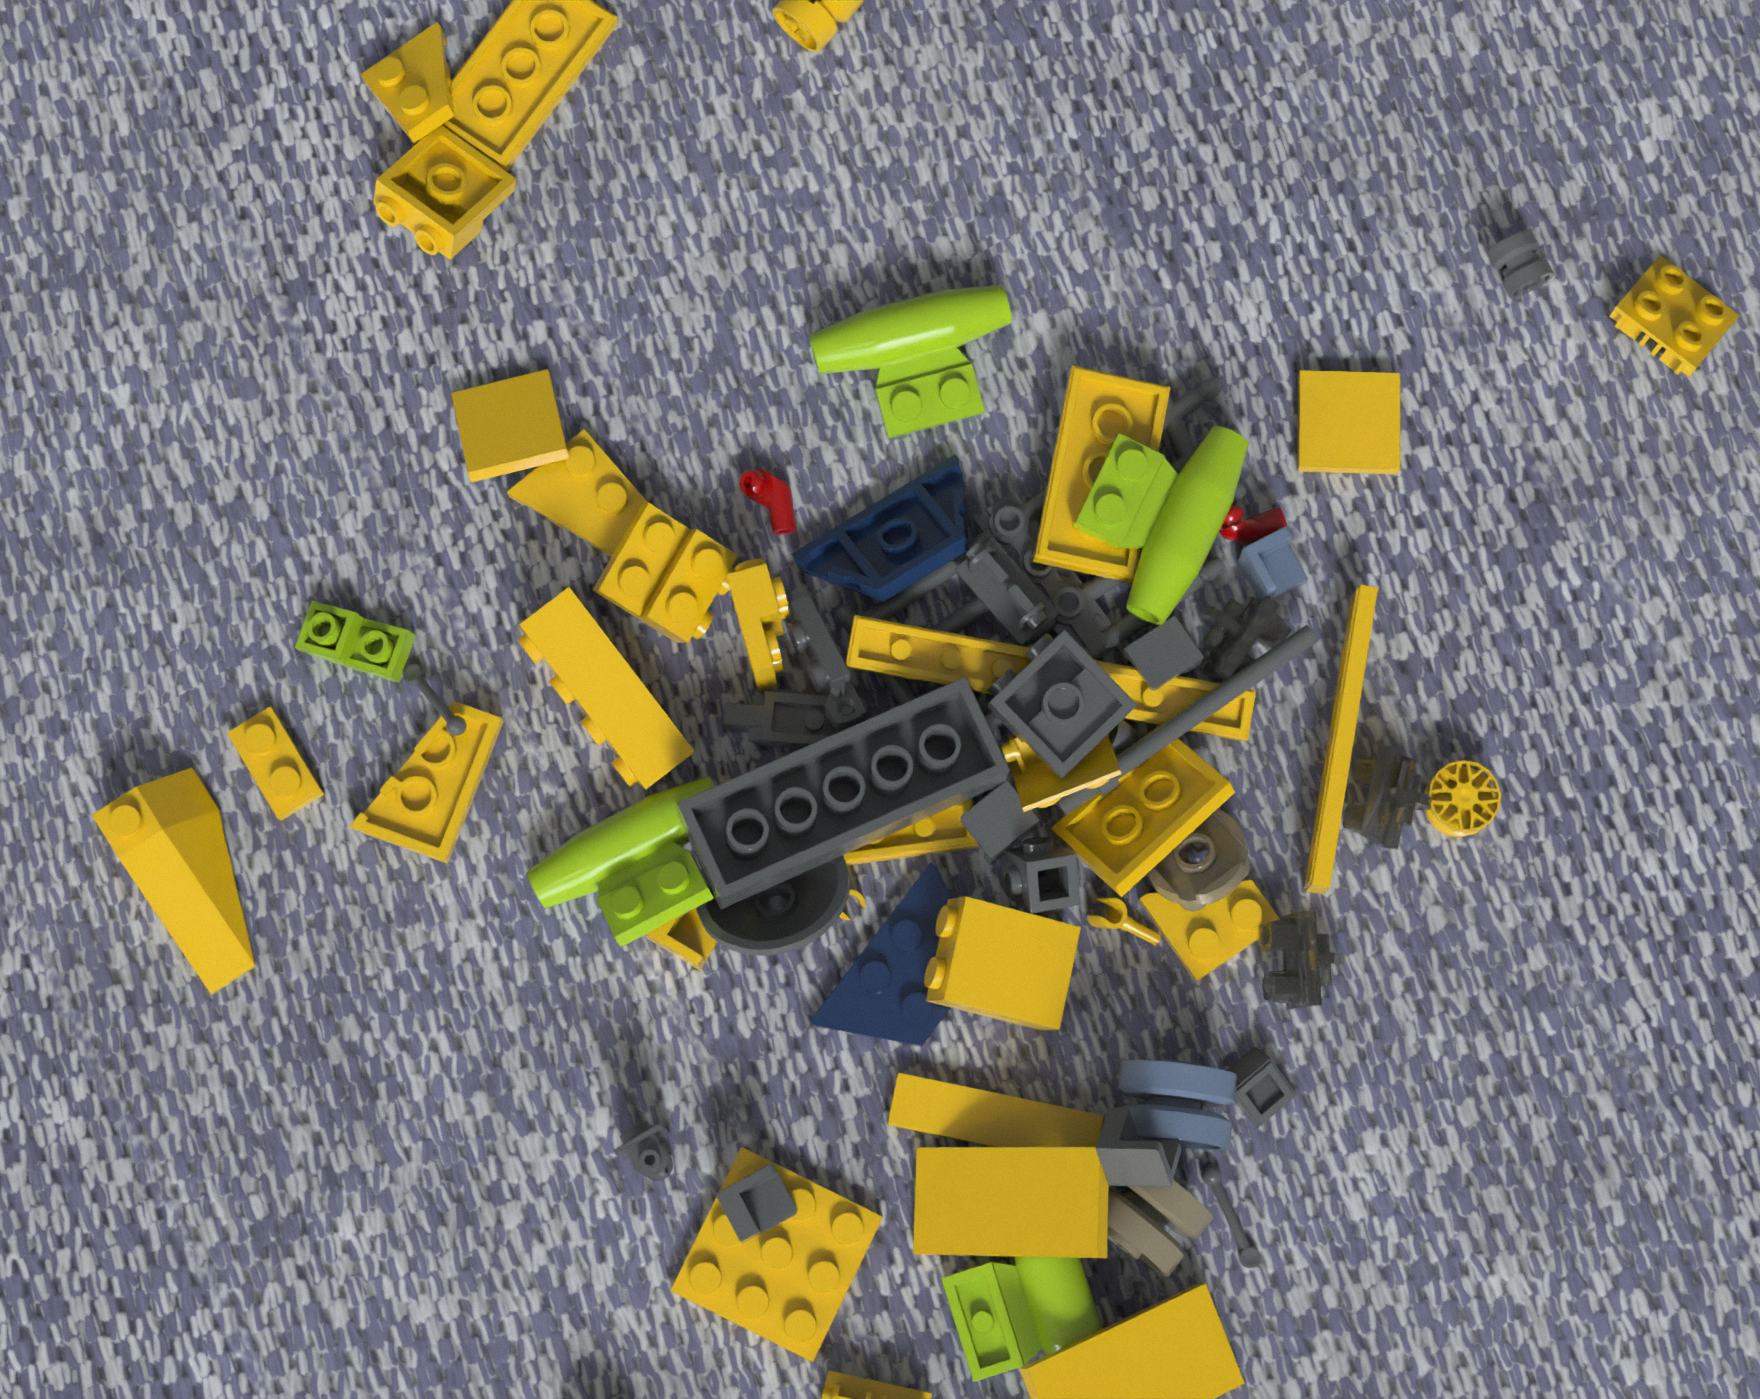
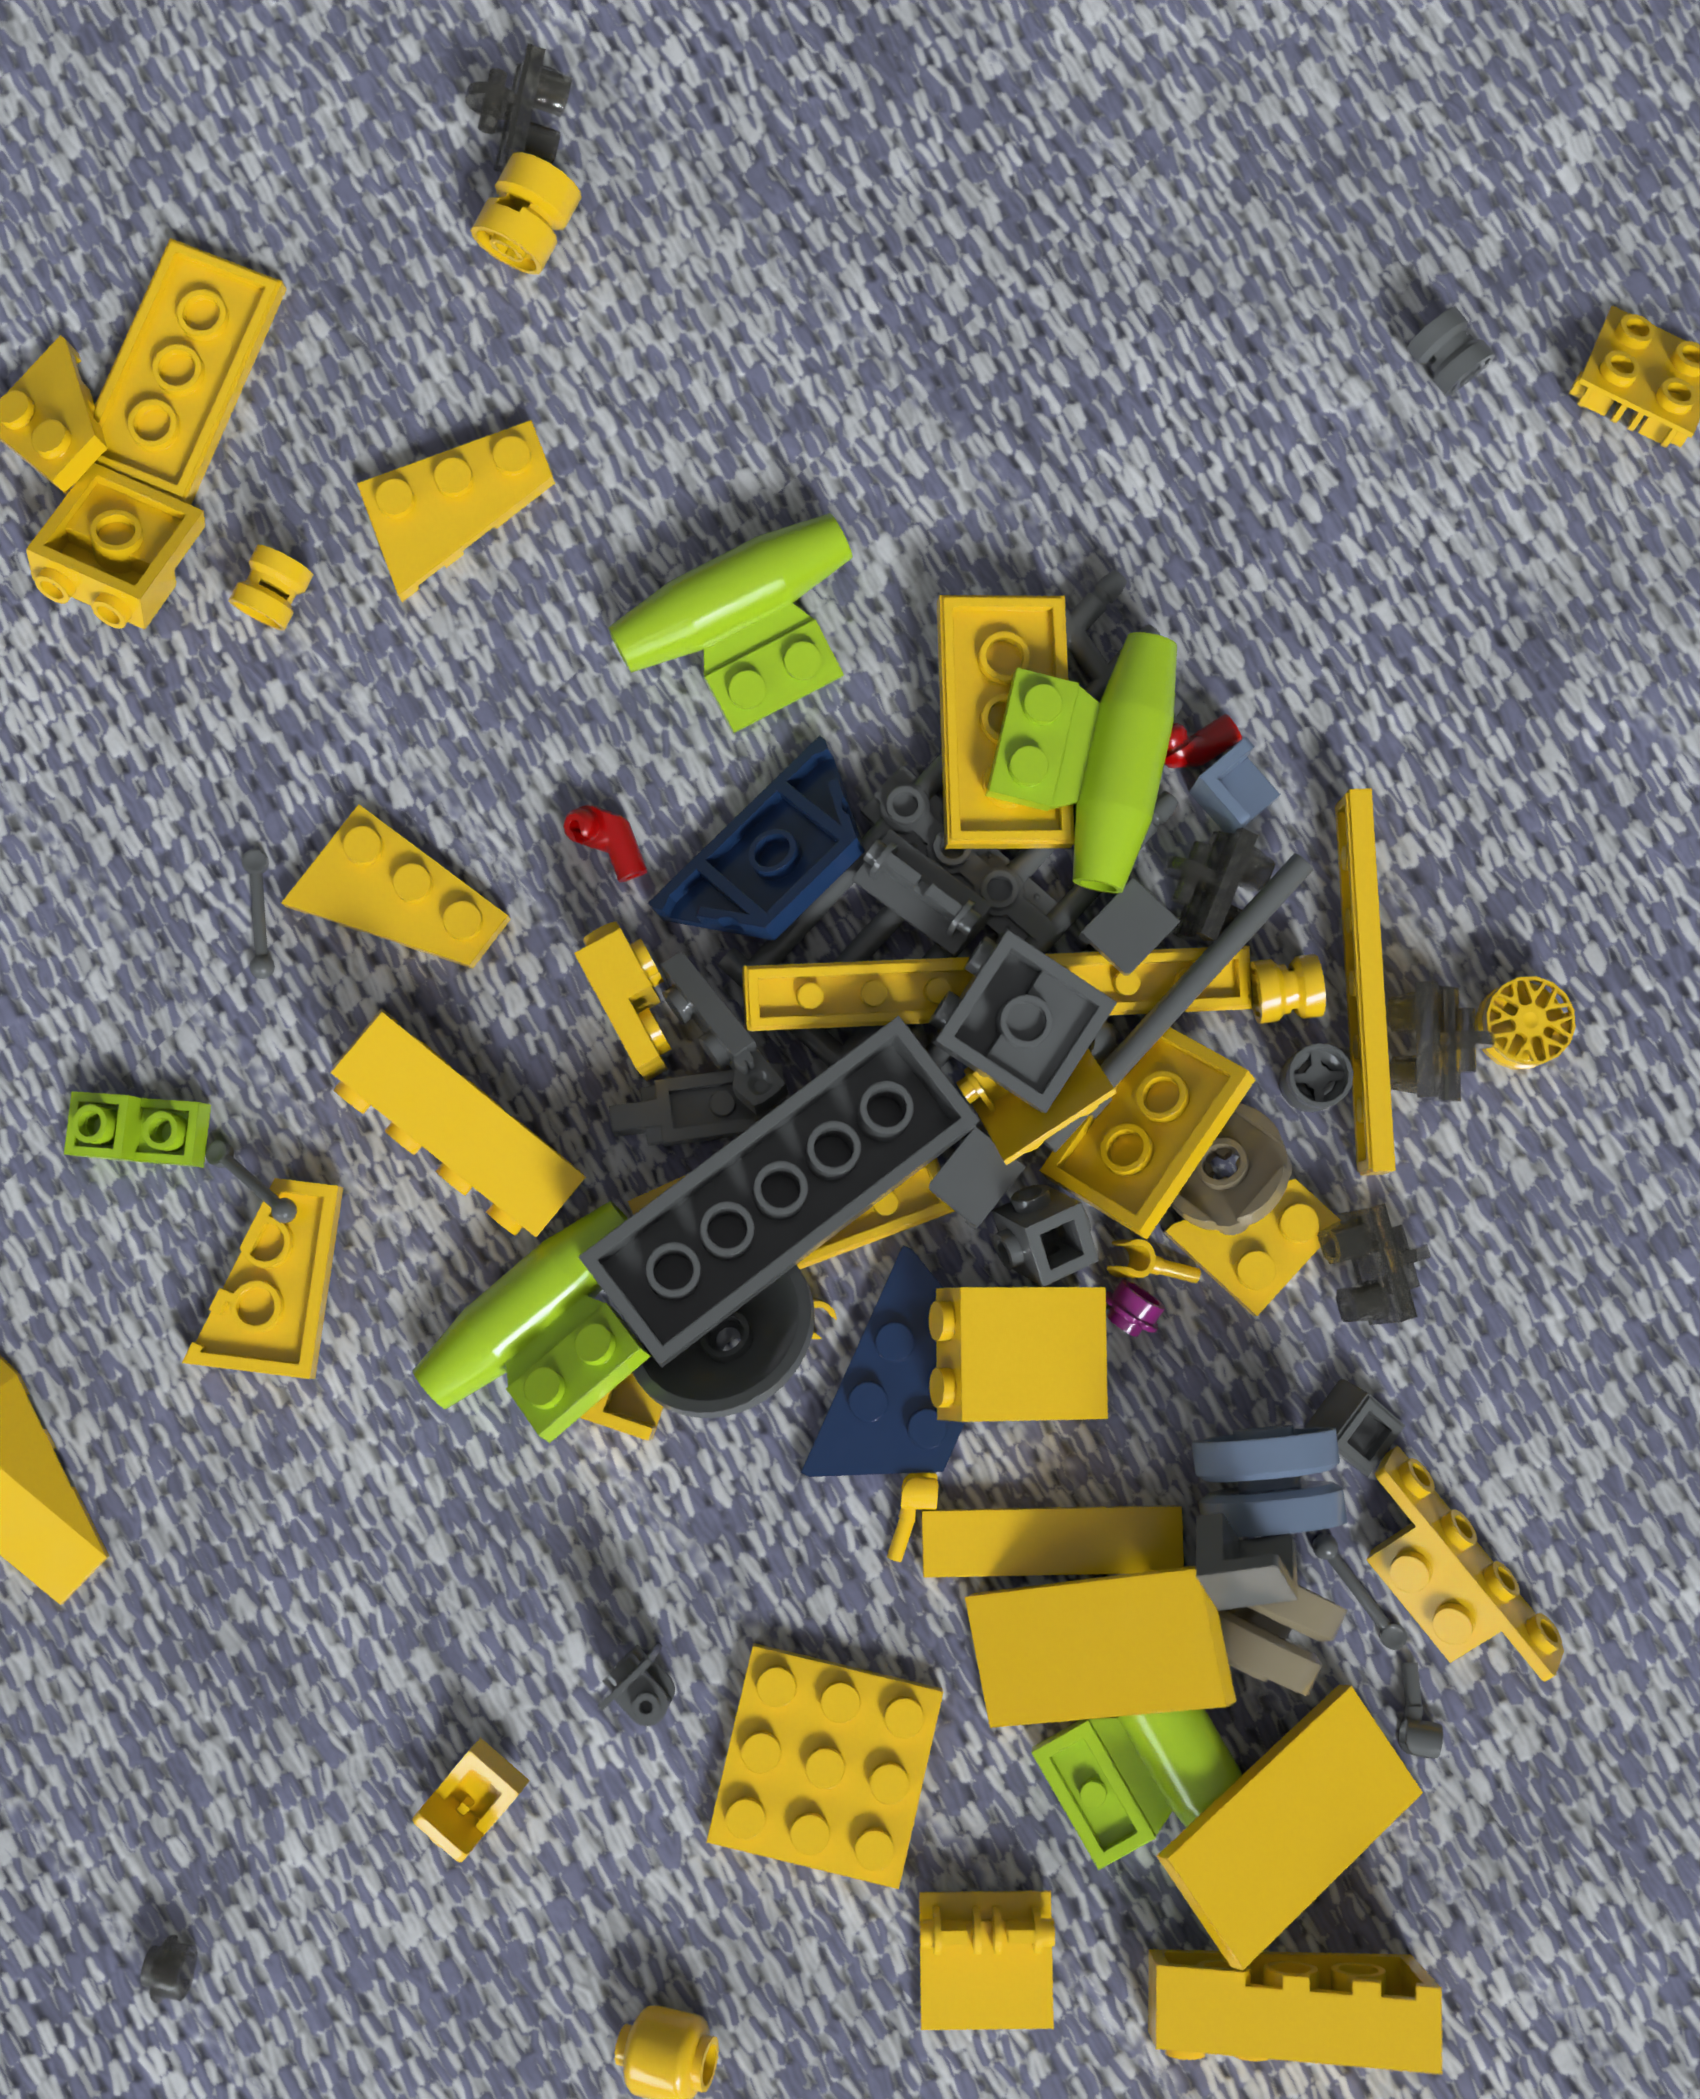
camera: 15 degrees left, 5 degrees up
(230, 1292) = (169, 1969): none -> clear smoke plate
(275, 763) = (74, 1302): yellow plate -> none
(480, 537) = (257, 863): none -> dark grey hinge
(495, 1213) = (470, 1800): none -> yellow bracket
(509, 425) = (265, 820): yellow tile -> none
(555, 248) = (271, 587): none -> yellow wheel
(666, 575) = (501, 963): yellow plate -> none
(705, 212) = (450, 500): none -> yellow wing
(757, 1203) = (787, 1719): dark grey panel -> none
(897, 1058) = (917, 1492): none -> yellow hand
(1100, 952) = (1133, 1308): none -> magenta plate
(1251, 1339) = (1417, 1735): none -> dark grey hand
(1272, 730) = (1281, 989): none -> yellow wheel
(1286, 794) = (1327, 1075): none -> dark grey wheel
(1304, 1220) = (1449, 1577): none -> yellow bracket
(1348, 422) = (1285, 591): yellow tile -> none

